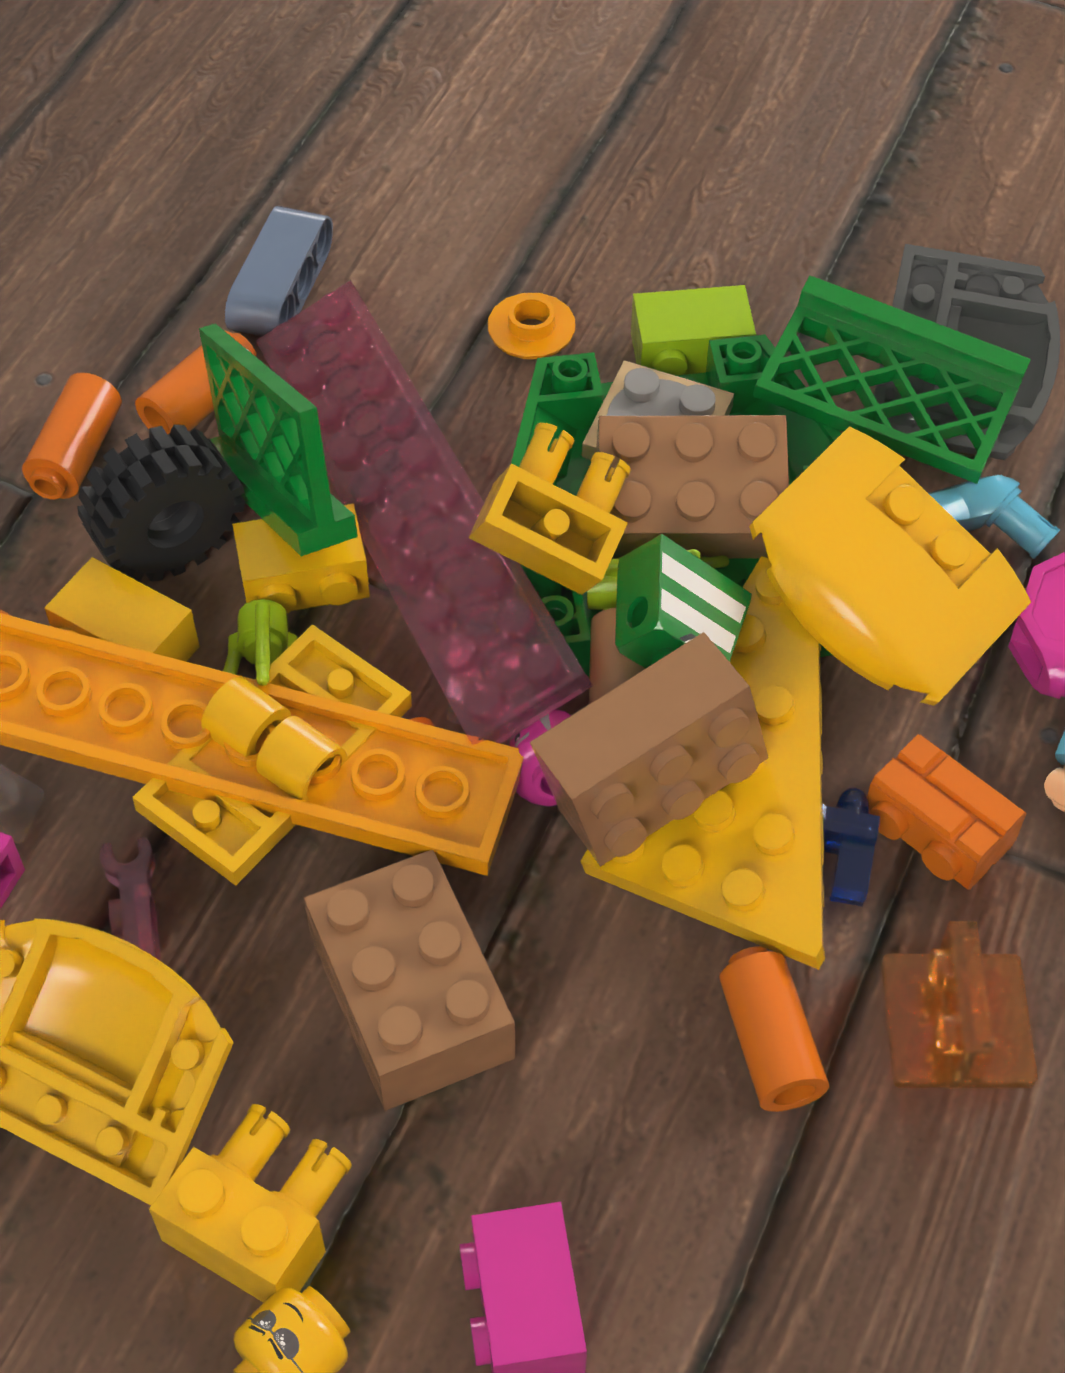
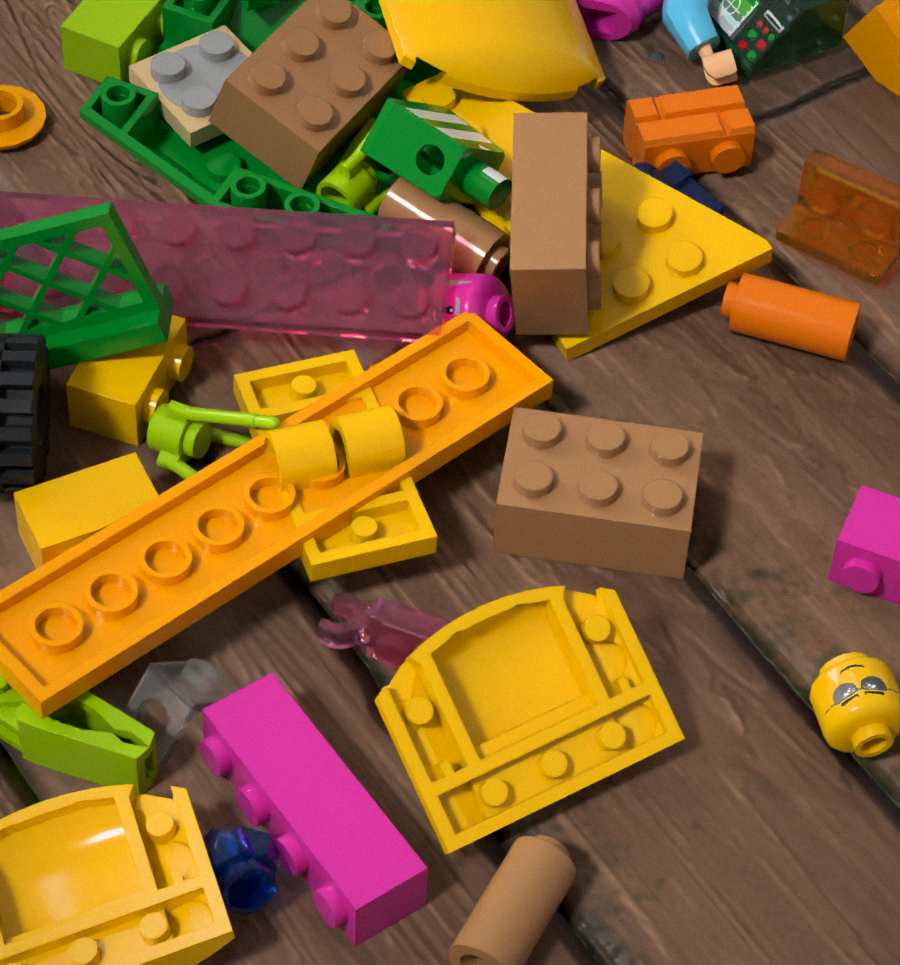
camera: 60 degrees left, 5 degrees down
(238, 1227) = (739, 692): yellow brick -> none
(548, 527) = (306, 160): yellow brick -> none

